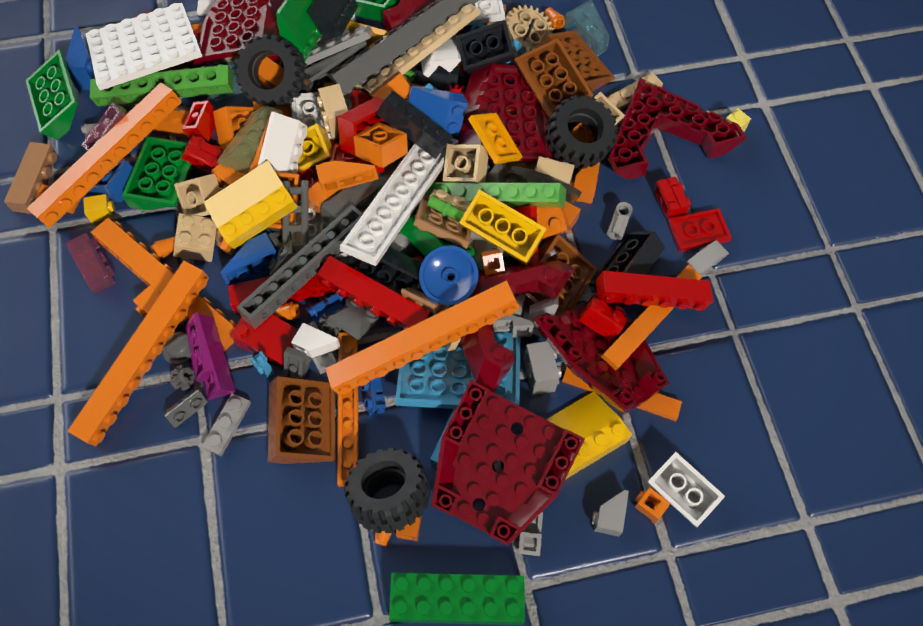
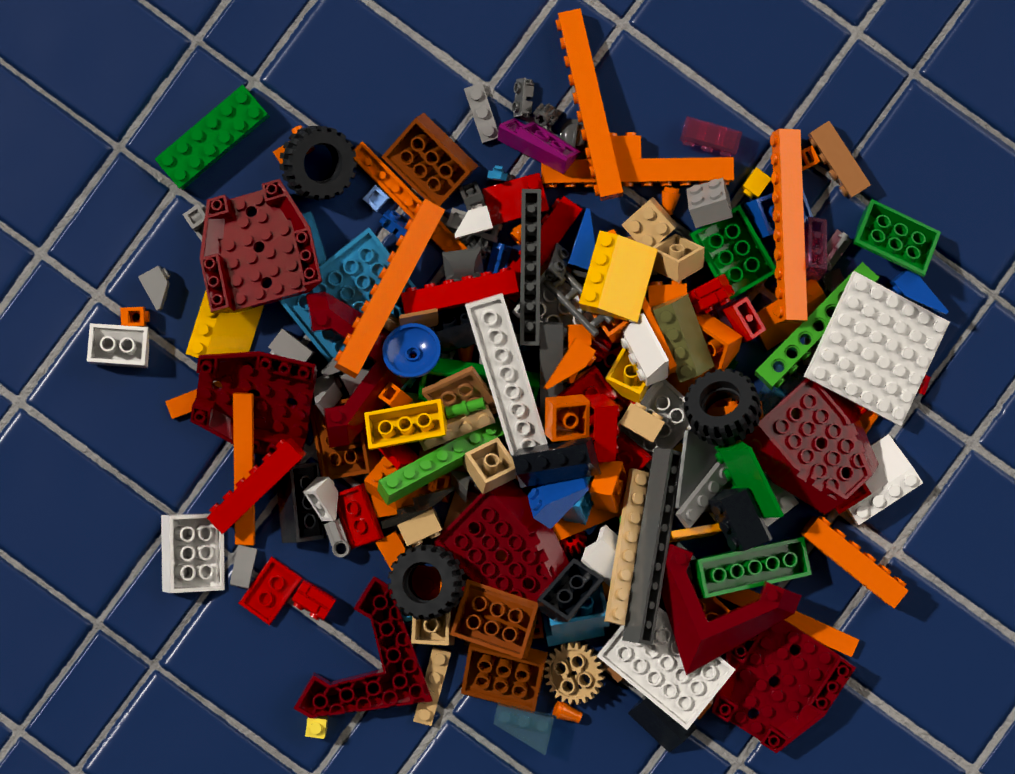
camera: 145 degrees right, 25 degrees up
(139, 213) = (709, 202): none -> light grey brick
(370, 431) = (376, 198): none -> light blue tile
(495, 138) = (486, 508): light orange tile -> none
(592, 222) = (358, 516): none -> red tile
(602, 318) = (276, 426): red brick -> none
(607, 252) = (323, 498): none -> white slope
(744, 295) = (191, 554): none -> white slope

